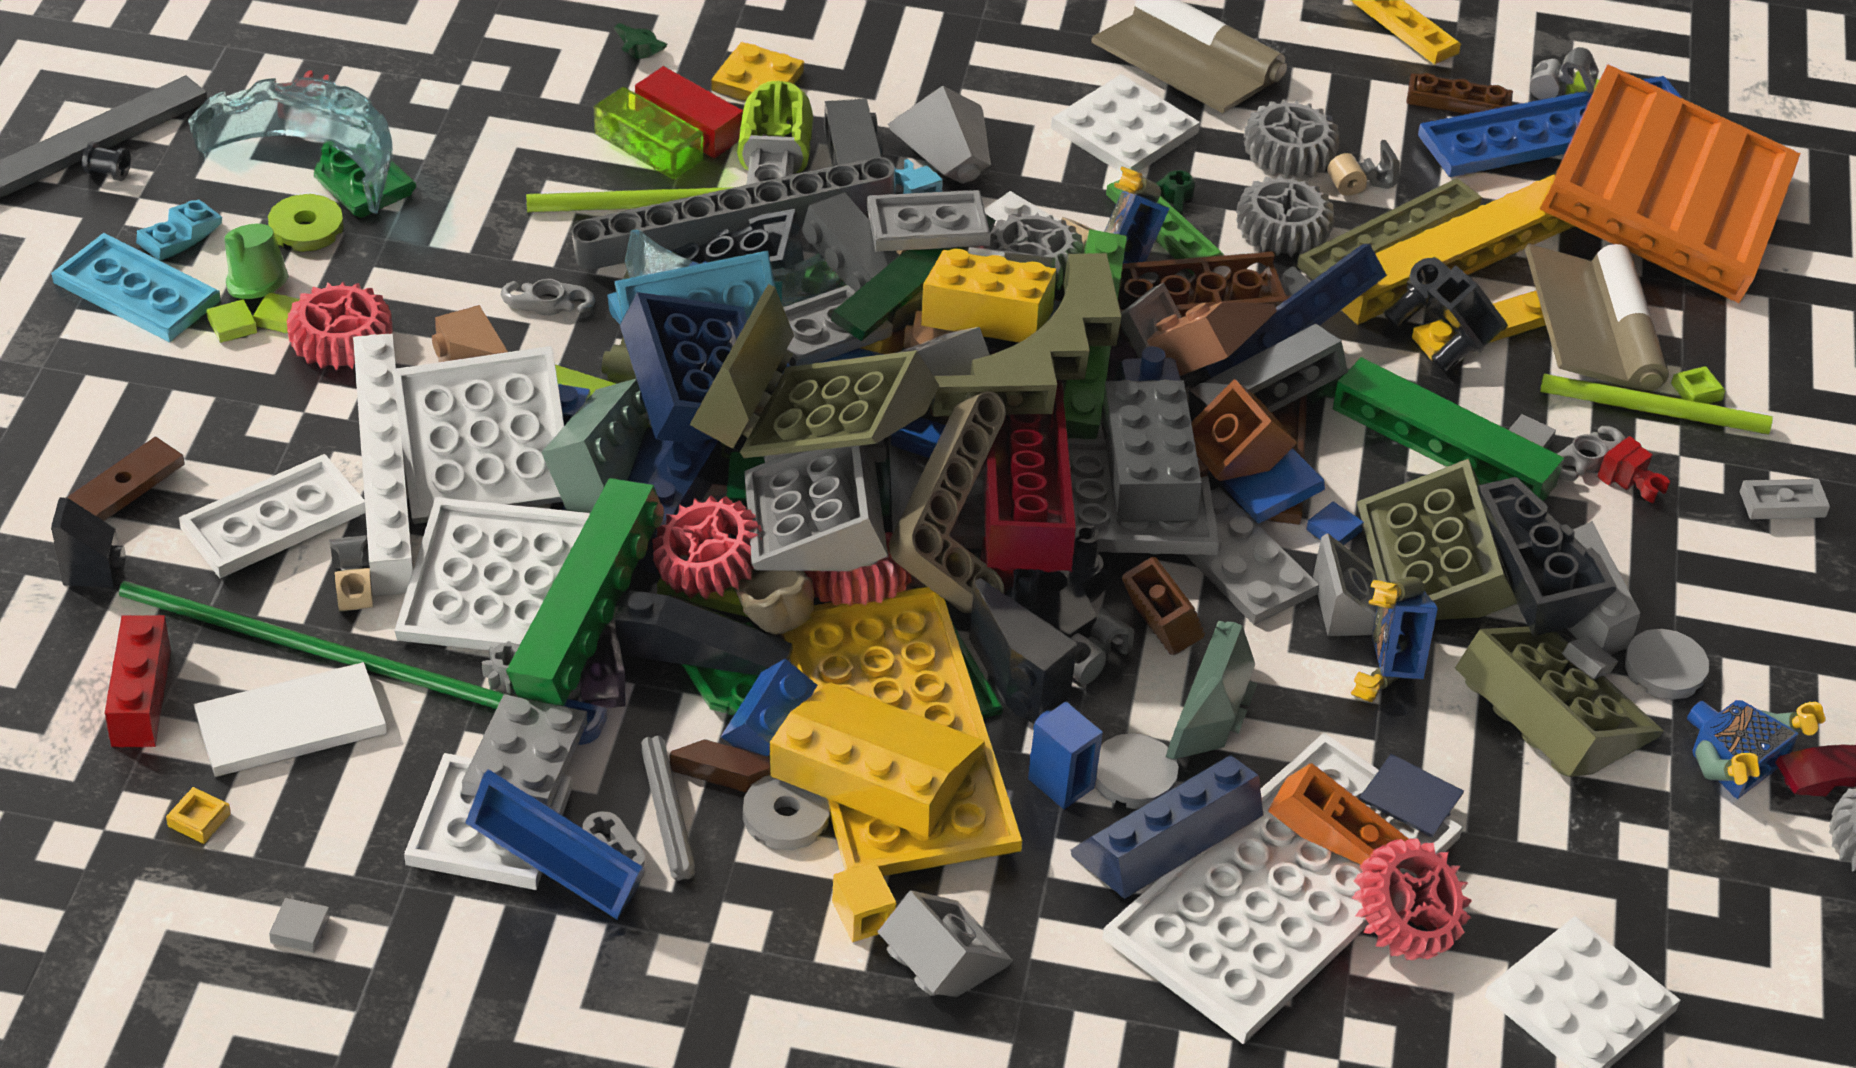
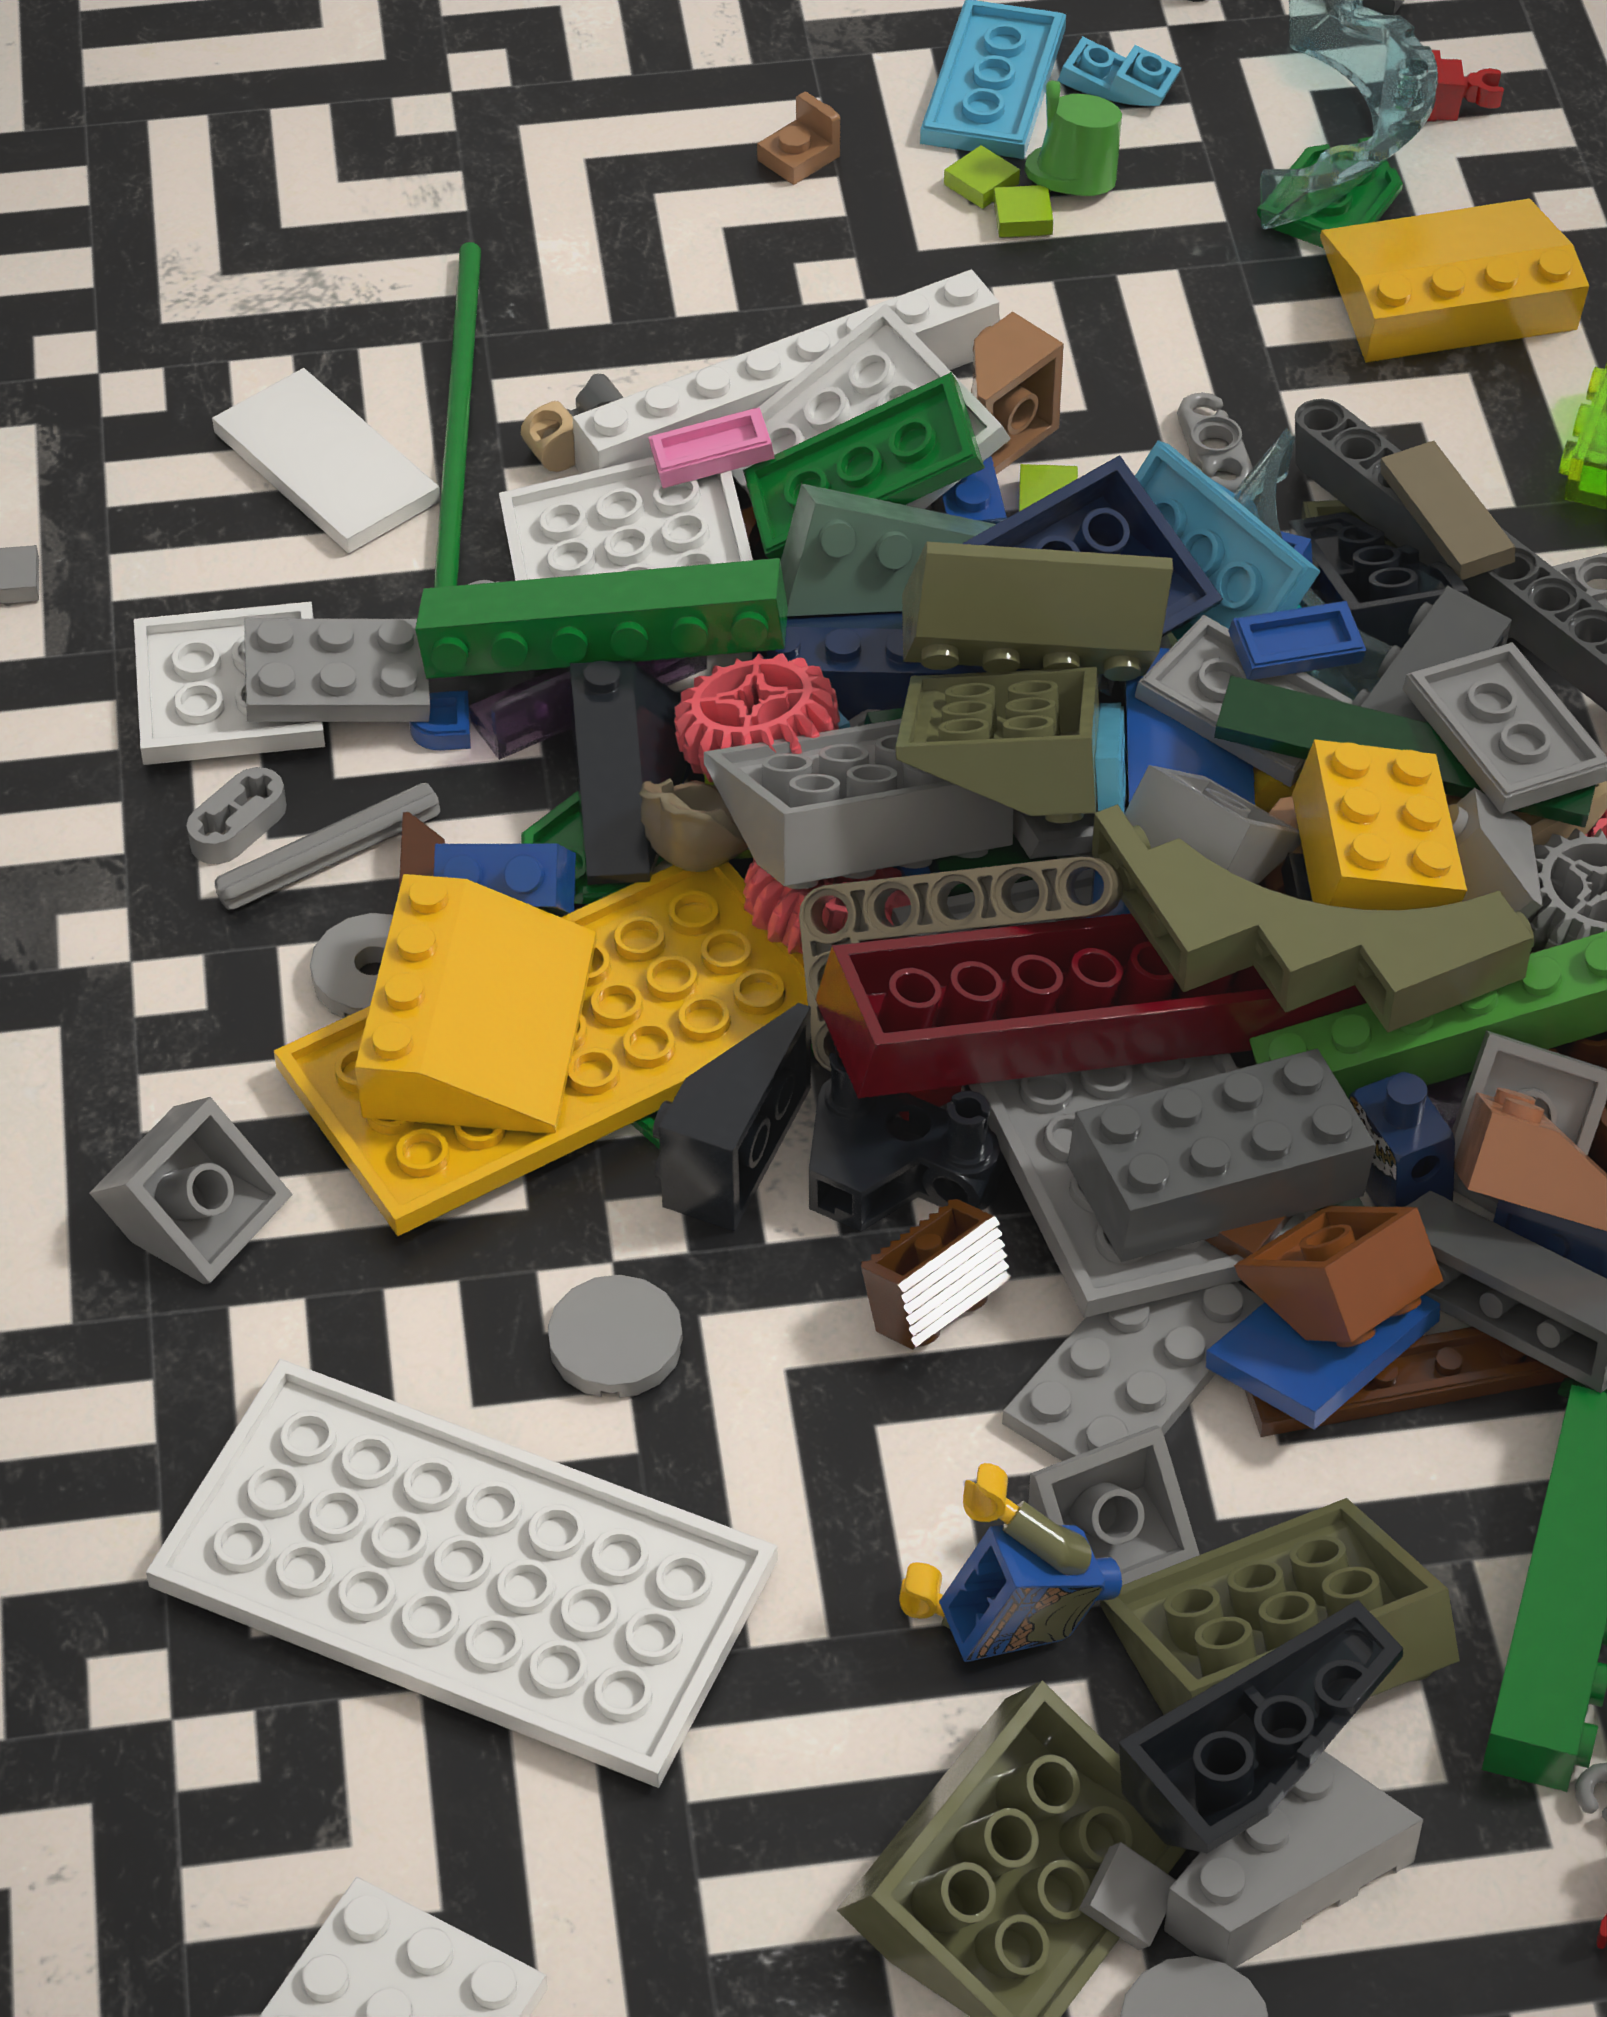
camera: 75 degrees right, 5 degrees up
(85, 546) = (490, 178): black slope -> none
(128, 478) = (635, 184): reddish brown tile -> none
(137, 389) = (804, 143): none -> medium nougat bracket
(138, 681) = (310, 305): red brick -> none
(198, 815) = (143, 436): yellow tile -> none
(272, 515) = (641, 319): white plate -> none
(291, 211) = (1201, 155): lime tile -> none
(328, 319) = (1026, 261): coral gear -> none
(445, 502) = (711, 447): none -> bright pink tile
(476, 149) = (1456, 279): none -> yellow slope
(519, 419) = (882, 454): none -> green tile
(554, 845) = (168, 729): blue slope -> none
(608, 199) = (1474, 460): lime piece -> none
(715, 199) = (1447, 510): none -> dark tan tile
(800, 285) = (1297, 640): none -> blue tile
(862, 900) = (237, 1075): yellow brick -> none
(1064, 754) = (562, 1219): blue piece -> none
(1092, 650) = (804, 1208): leg -> none
(1173, 827) = (484, 1387): dark blue slope -> none
(1216, 694) = (784, 1379): sand green wedge -> none
(1331, 815) = (561, 1587): orange slope -> none
(1336, 522) = (1269, 1477): blue tile -> none
(1411, 795) = (691, 1688): dark blue window -> none
(1428, 900) = (456, 1746): coral gear -> none

